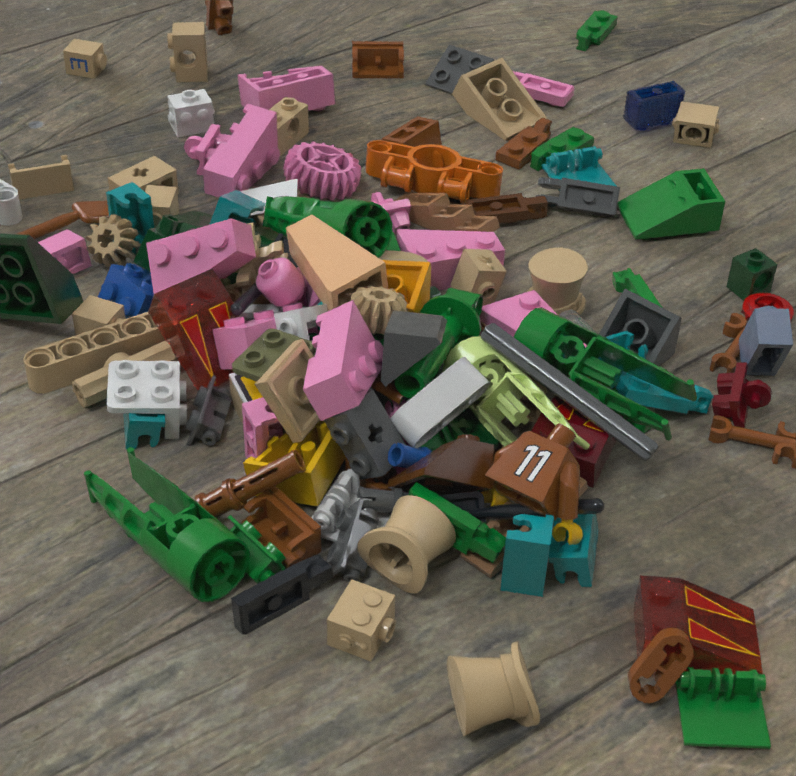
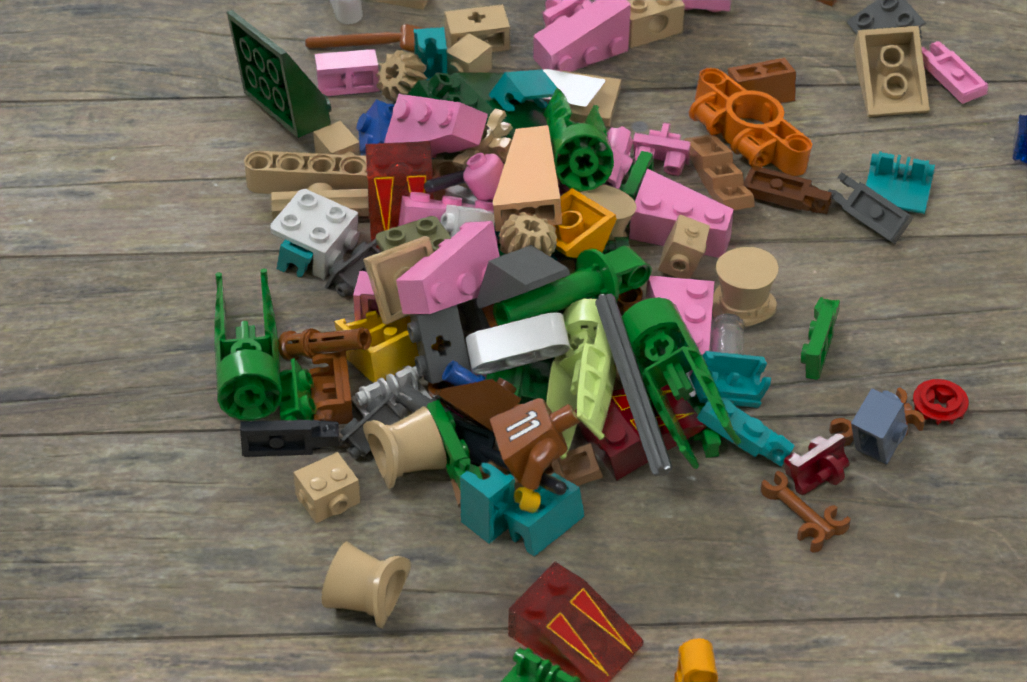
camera: 35 degrees right, 5 degrees up
(322, 170) = (644, 80): bright pink gear -> none
(519, 149) = (879, 130): dark orange hinge -> none
(569, 140) = (923, 146): green hinge -> none
(648, 323) = (788, 365): dark grey slope -> none
(667, 671) = (512, 641): dark orange beam -> none
(674, 206) = (950, 258): green slope -> none
(751, 274) = (955, 358): dark green brick -> none

